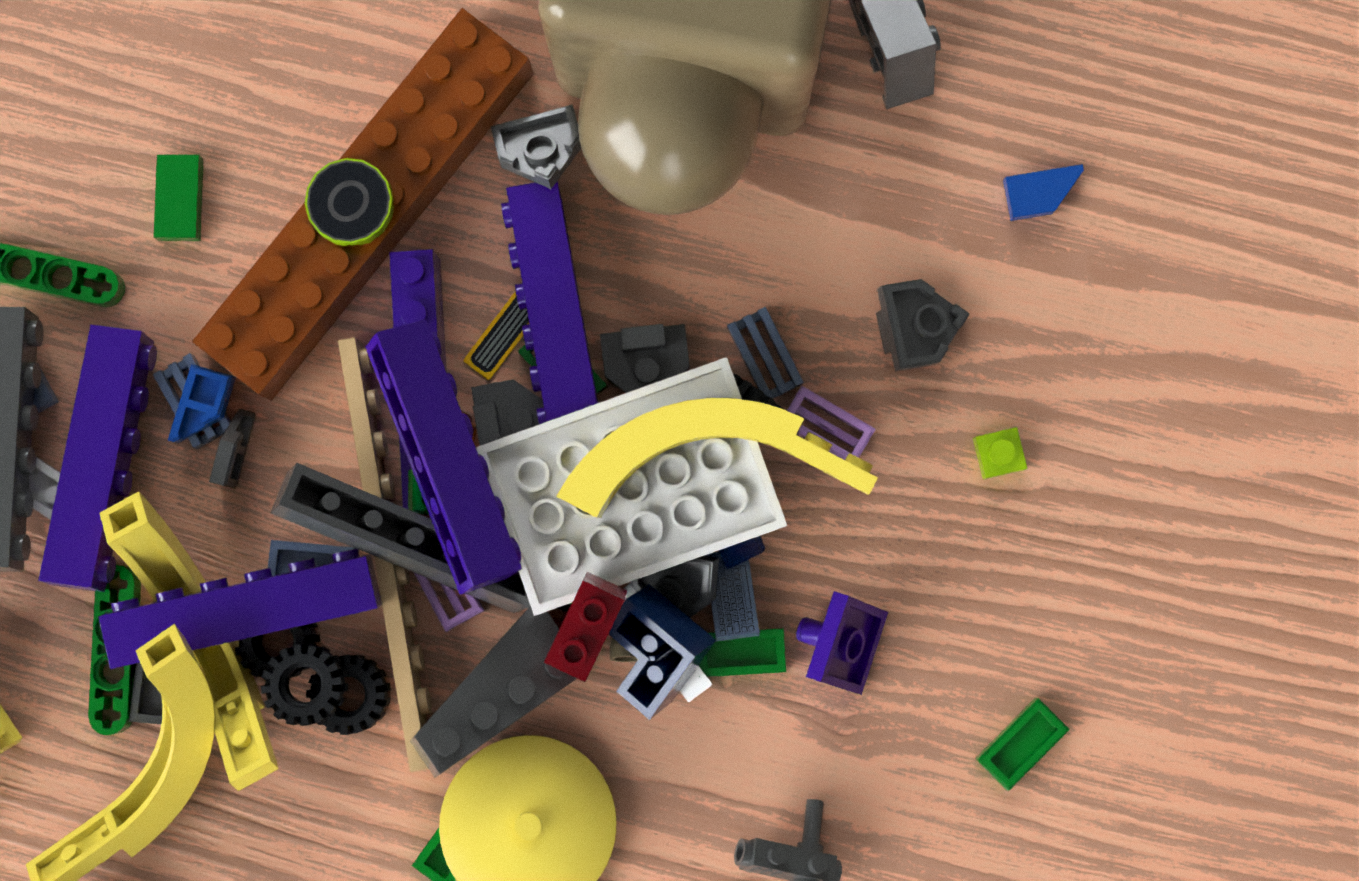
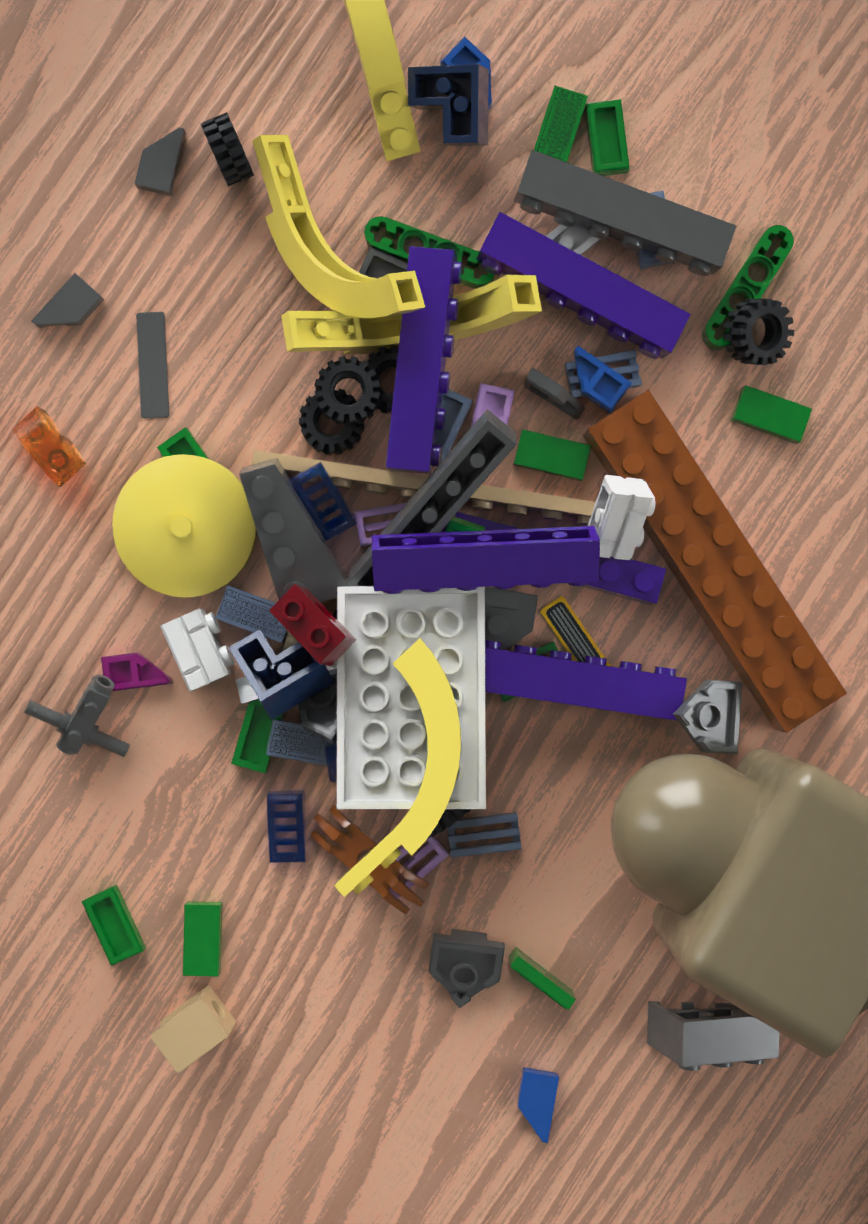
camera: 110 degrees right, 5 degrees up
(81, 224) = (775, 331): none -> black tyre
(263, 523) = (496, 400): none -> lavender tile
(305, 426) = (552, 455): none -> green tile
(343, 322) = (621, 515): none -> white brick
(349, 202) = (716, 551): black tile -> none
(466, 645) = (337, 524): none -> clear blue slope
(603, 708) = (250, 613): none -> sand blue tile
(644, 355) = (513, 739): dark grey plate -> none
(665, 758) = (197, 648): none -> white brick
(720, 825) = (133, 672): none -> magenta tile
(802, 593) = (286, 797): none -> clear blue slope
(838, 500) = (348, 851): none -> dark orange piece
(843, 642) = (236, 816): dark purple tile -> none
(902, 233) = (541, 978): none -> green tile
(1000, 453) = (341, 990): lime plate -> none
(1000, 634) = (202, 939): none -> green tile
(1104, 606) = (193, 1029): none -> tan piece

